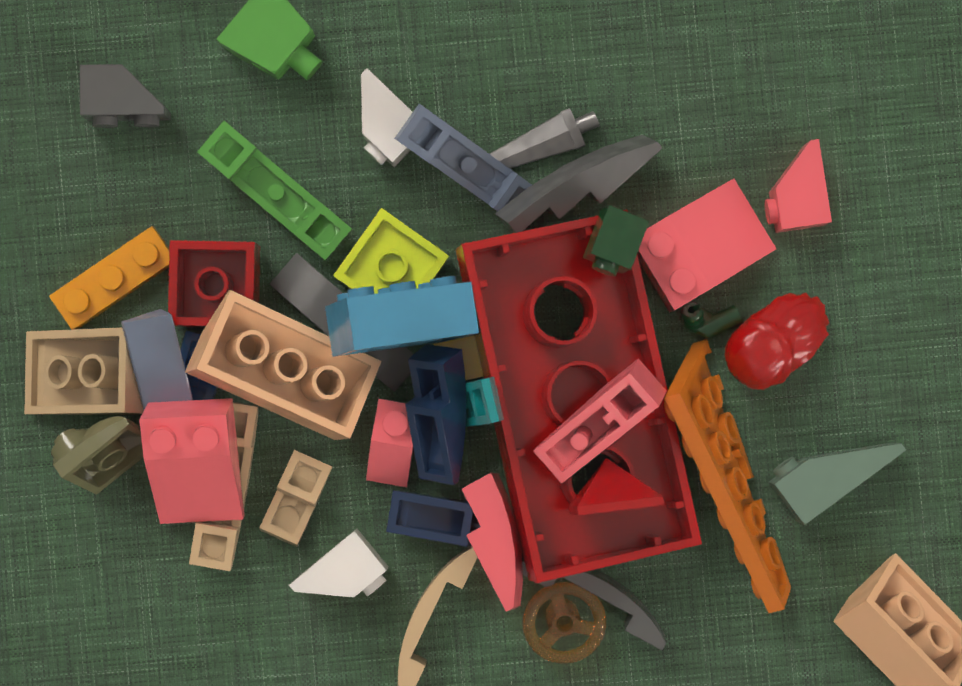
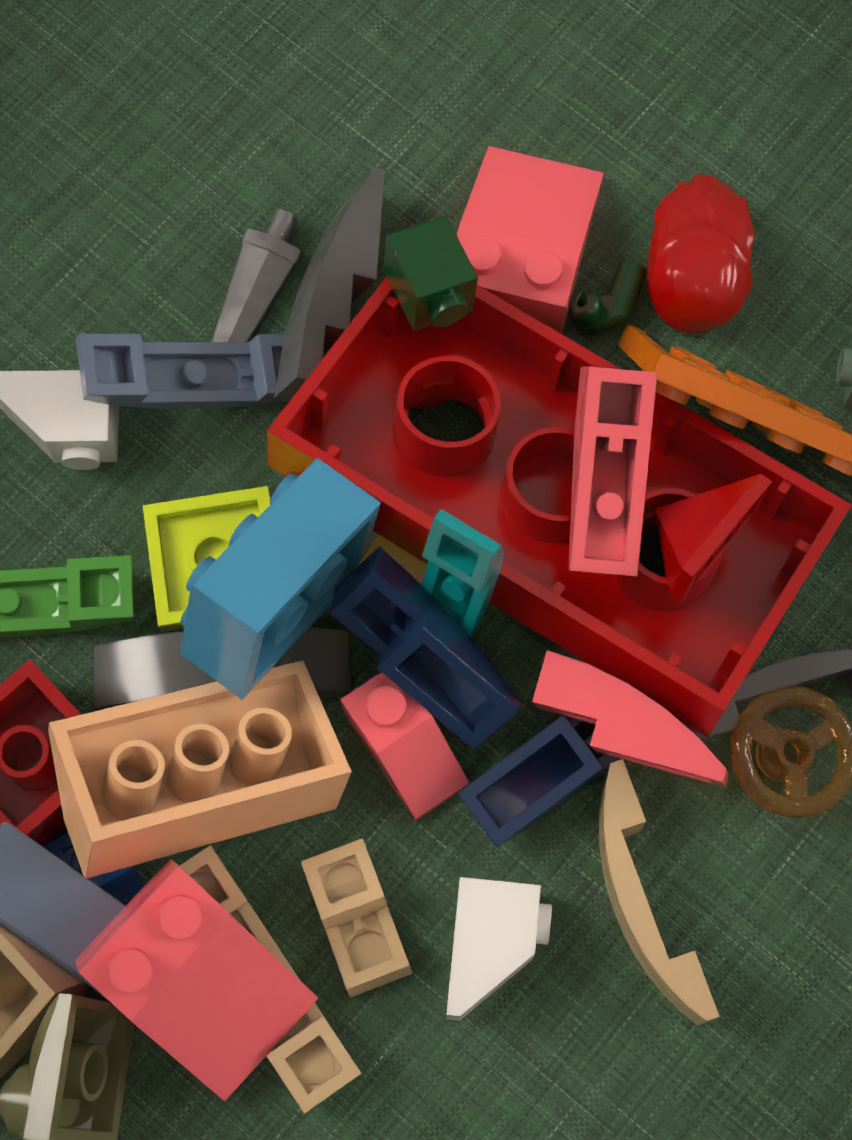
camera: 40 degrees left, 15 degrees down
(800, 194) = (572, 93): coral slope -> none

